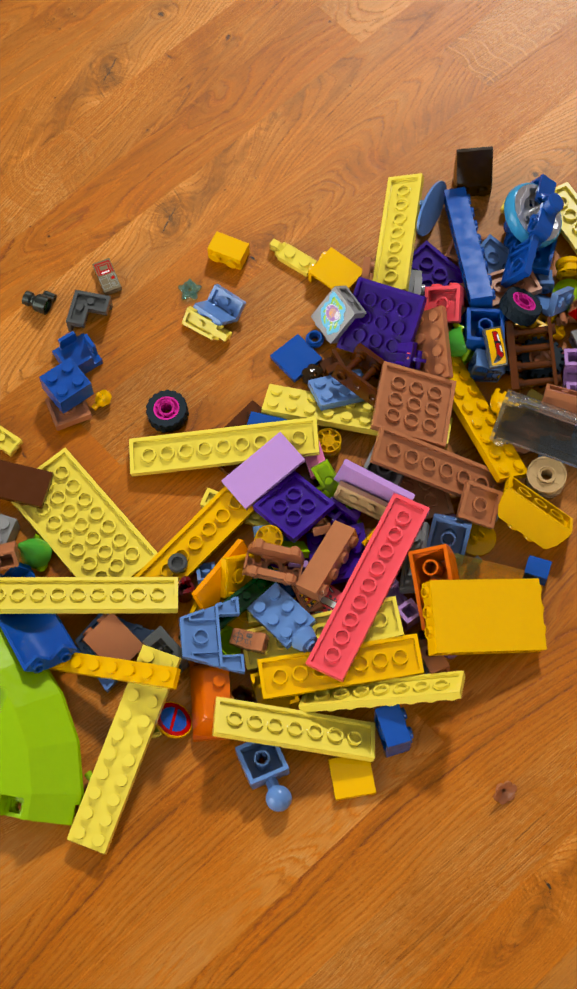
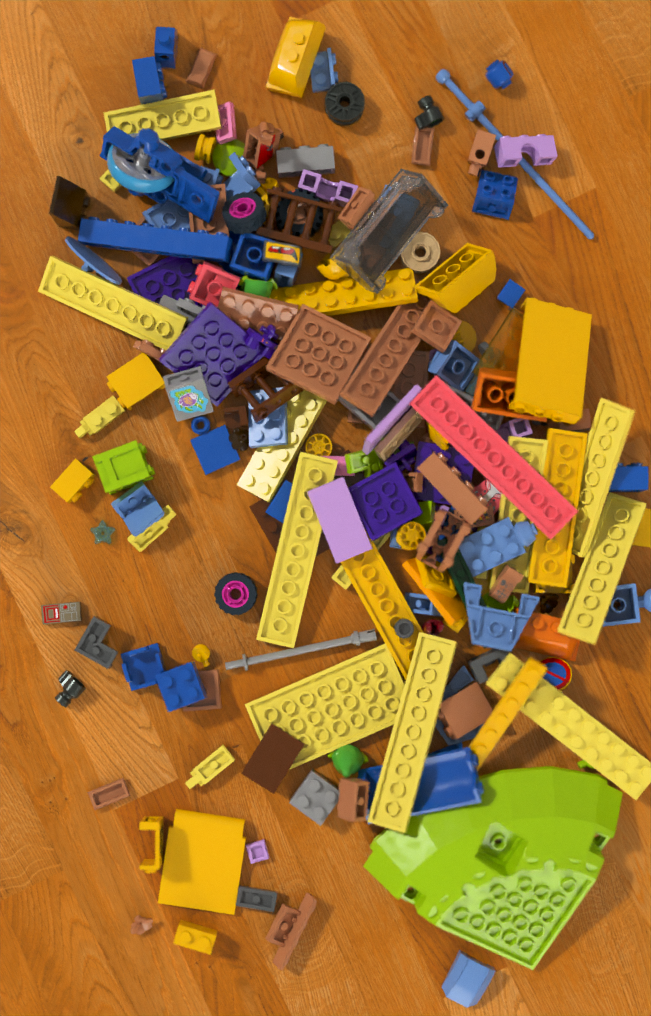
camera: 75 degrees left, 20 degrees up
(156, 528) = (355, 638): none -> light grey bar
(254, 283) = (123, 467): none -> lime container

